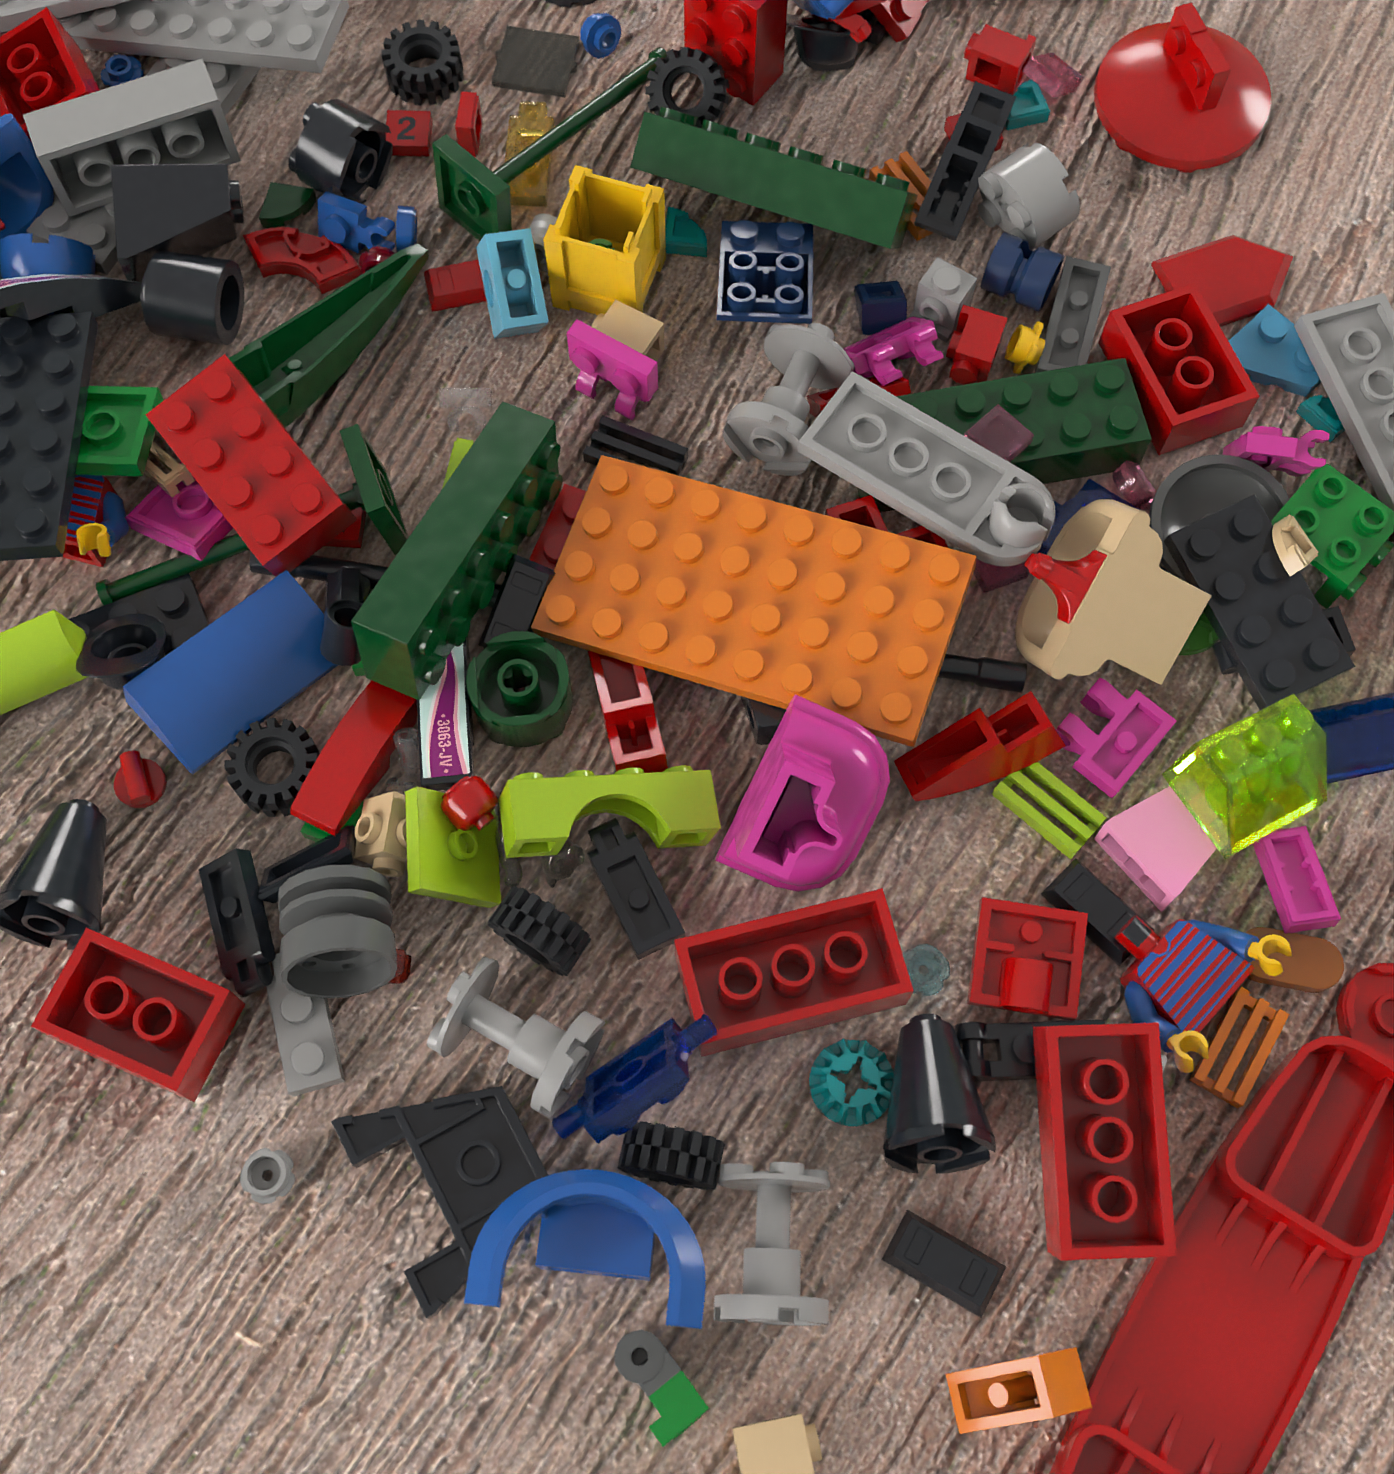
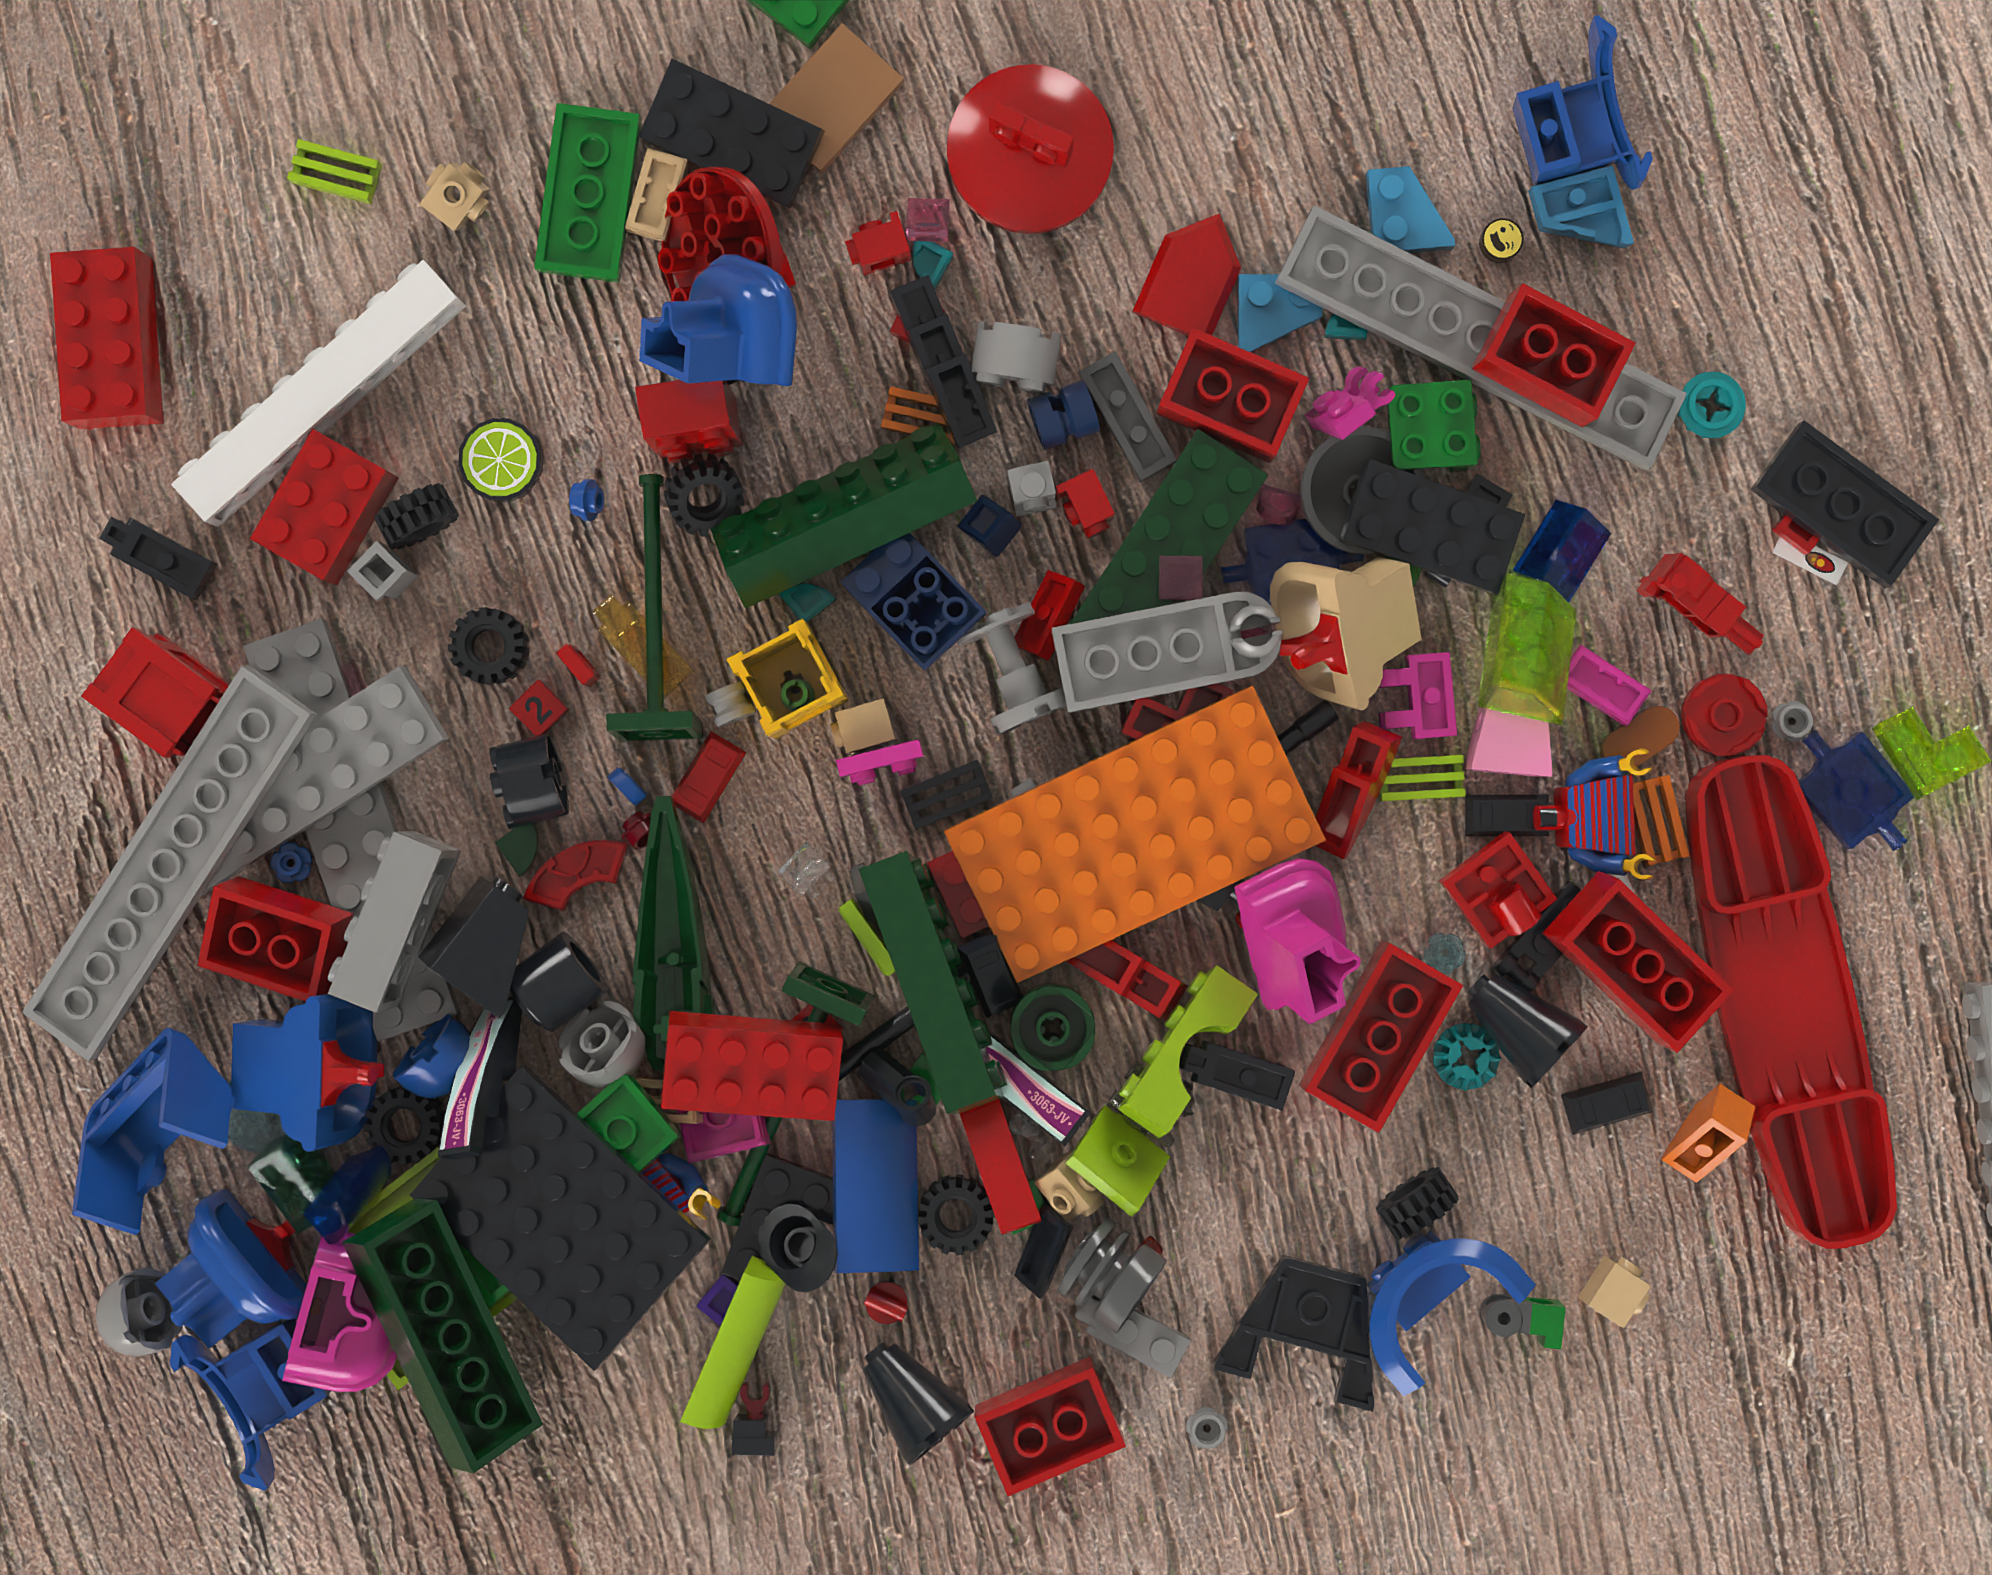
camera: 50 degrees left, 20 degrees up
(163, 363) = (602, 1045): none -> light grey cylinder
(238, 921) = (1039, 1319): black hinge -> none
(348, 225) = (588, 822): blue plate -> none
(469, 803) = (1104, 1128): red piece -> none
(512, 283) = (753, 766): medium azure brick -> none
(534, 1045) = (1286, 1221): light grey piece -> none
(535, 61) = (558, 561): clear smoke piece -> none
(539, 930) = (1218, 1157): black tyre -> none
(635, 1081) = (1361, 1186): clear blue plate -> none
(771, 1267) = (1538, 1216): light grey piece -> none
(899, 341) = (1028, 559): dark pink plate -> none
(1025, 346) = (1116, 470): yellow plate -> none
(1292, 545) = (1425, 476): tan tile -> none

